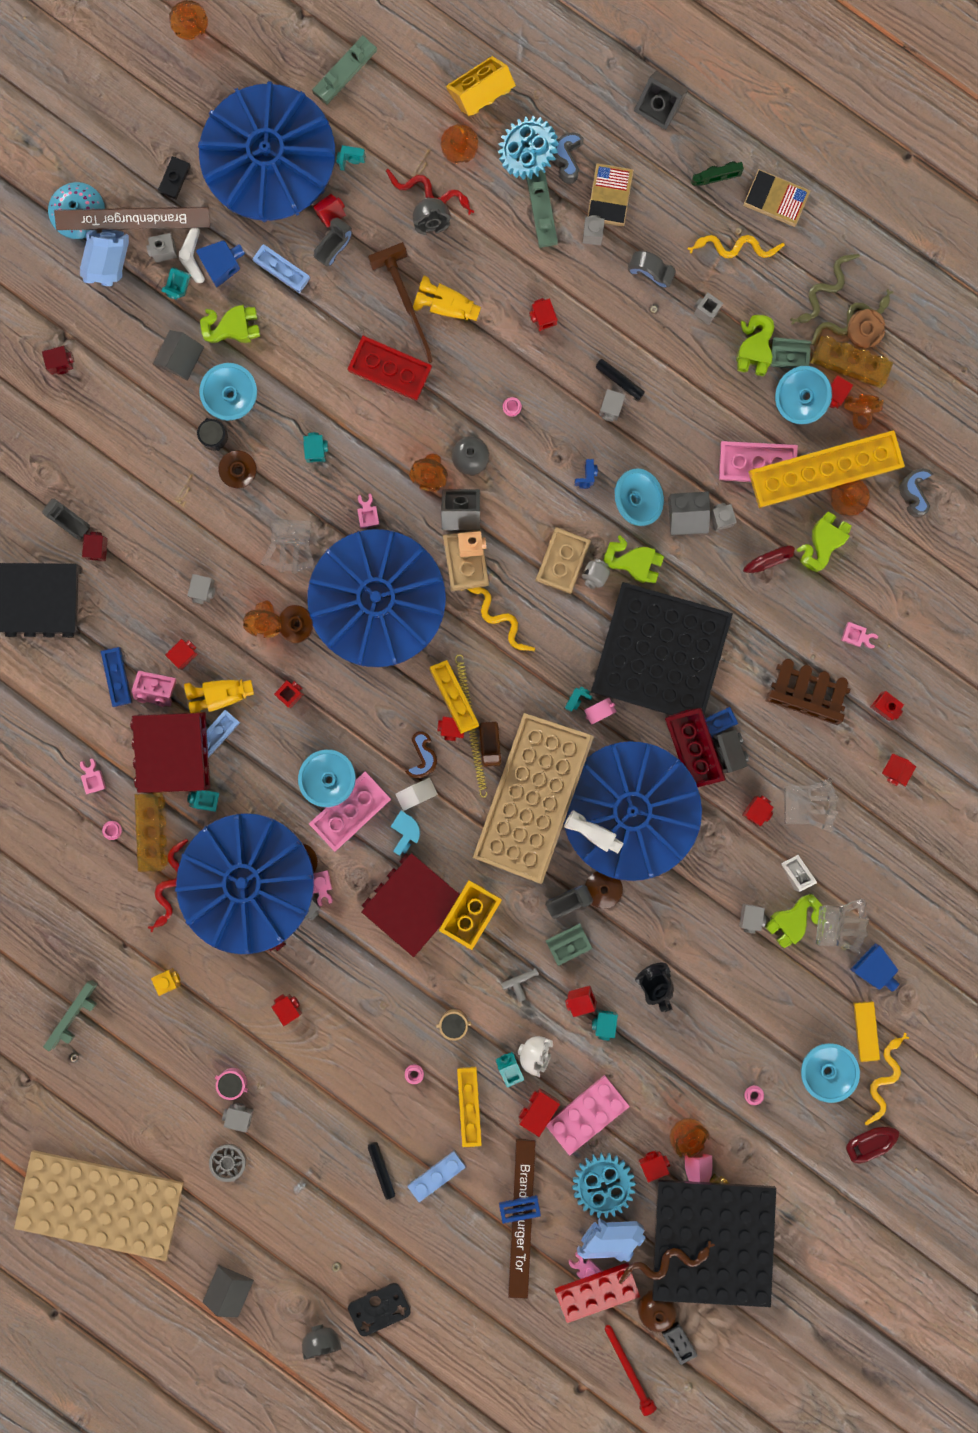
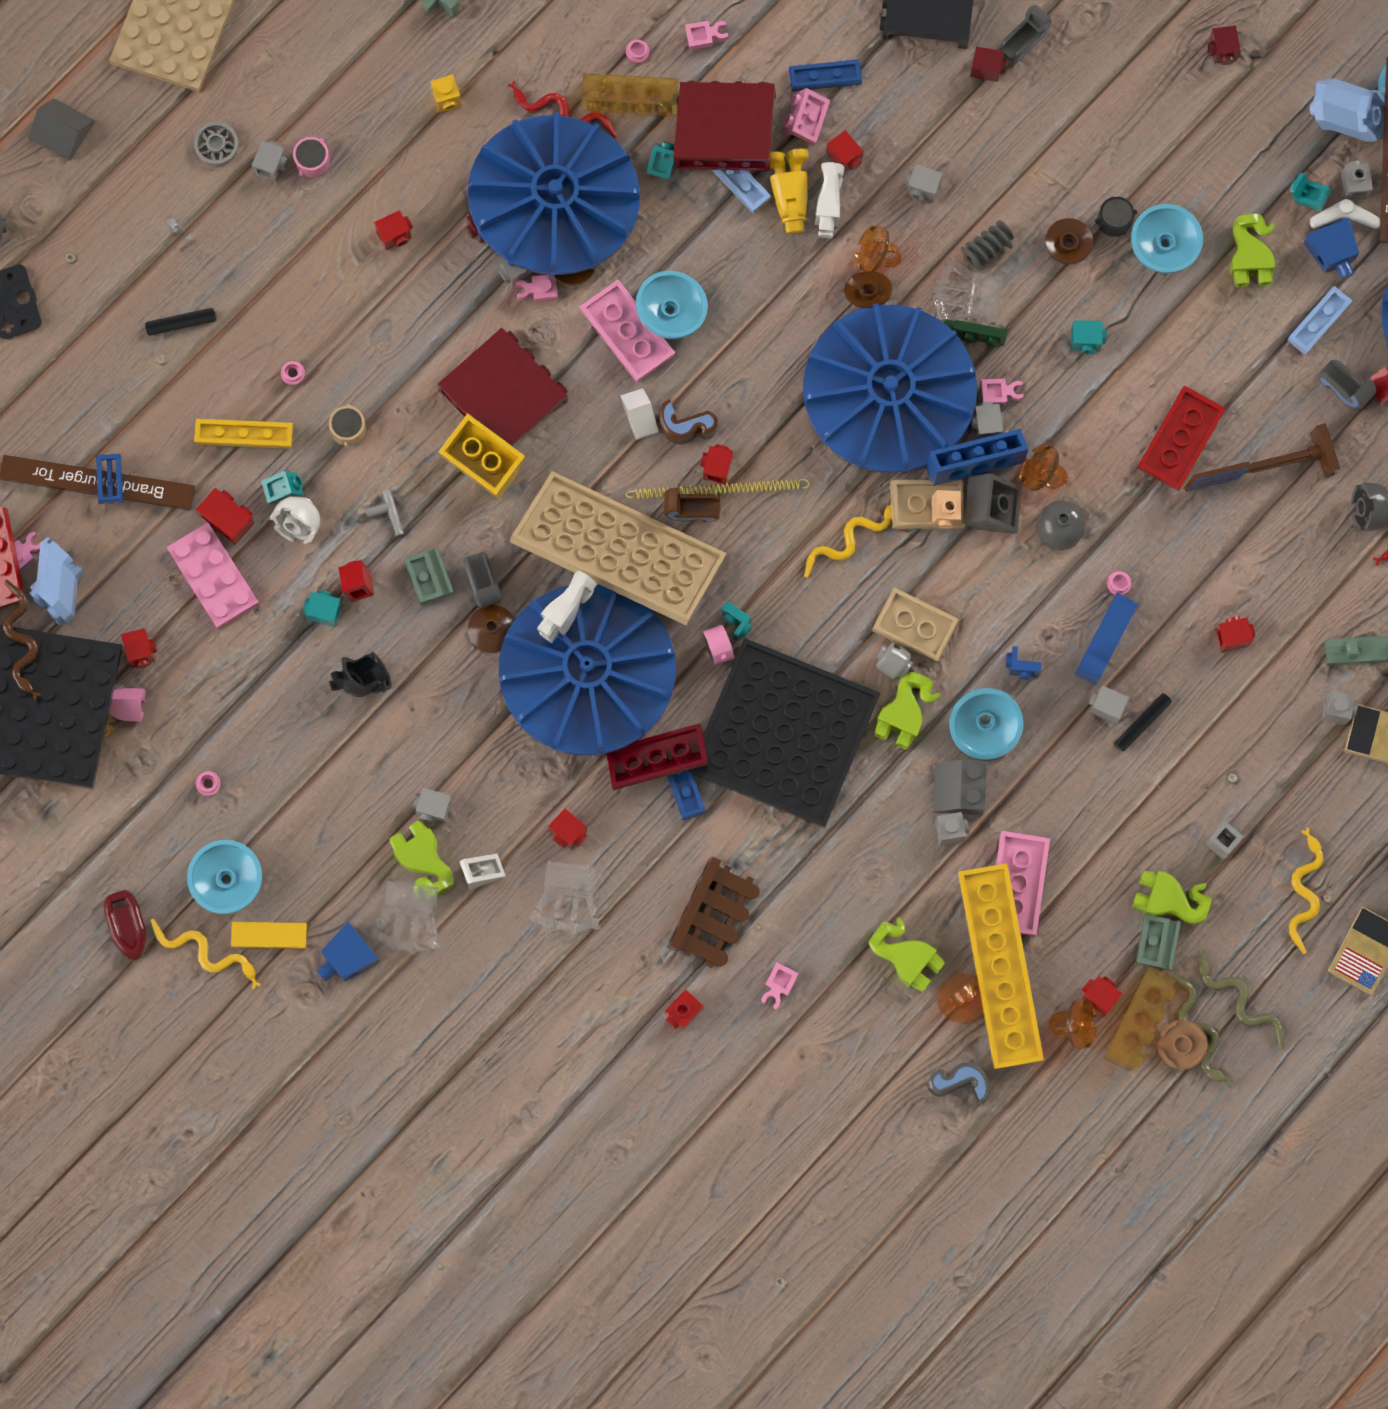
camera: 95 degrees right, 10 degrees down
(178, 354) = (1220, 188): dark grey slope -> none
(226, 662) = (829, 199): none -> white hips
(247, 532) = (987, 244): none -> dark grey piece
(289, 693) = (781, 272): red brick -> none
(321, 538) = (975, 332): none -> dark green hinge
(393, 519) = (987, 420): none -> light grey brick
(408, 828) = (597, 398): medium azure brick -> none
(426, 524) = (977, 457): none -> blue brick
(436, 1176) = (163, 386): light blue plate -> none
(445, 301) = (1261, 516): yellow piece -> none
(454, 697) = (756, 467): yellow plate -> none
(559, 412) = (1106, 639): none -> blue beam
(597, 1168) = (102, 589): medium azure gear -> none
(652, 267) = (1282, 776): dark grey animal -> none
(688, 1137) = (168, 691): clear orange cylinder -> none
(730, 751) = (648, 800): dark grey slope -> none
(770, 559) = (890, 883): dark red piece -> none
(792, 391) = (1100, 947): medium azure dish -> none
(898, 770) = (598, 1012): red brick -> none

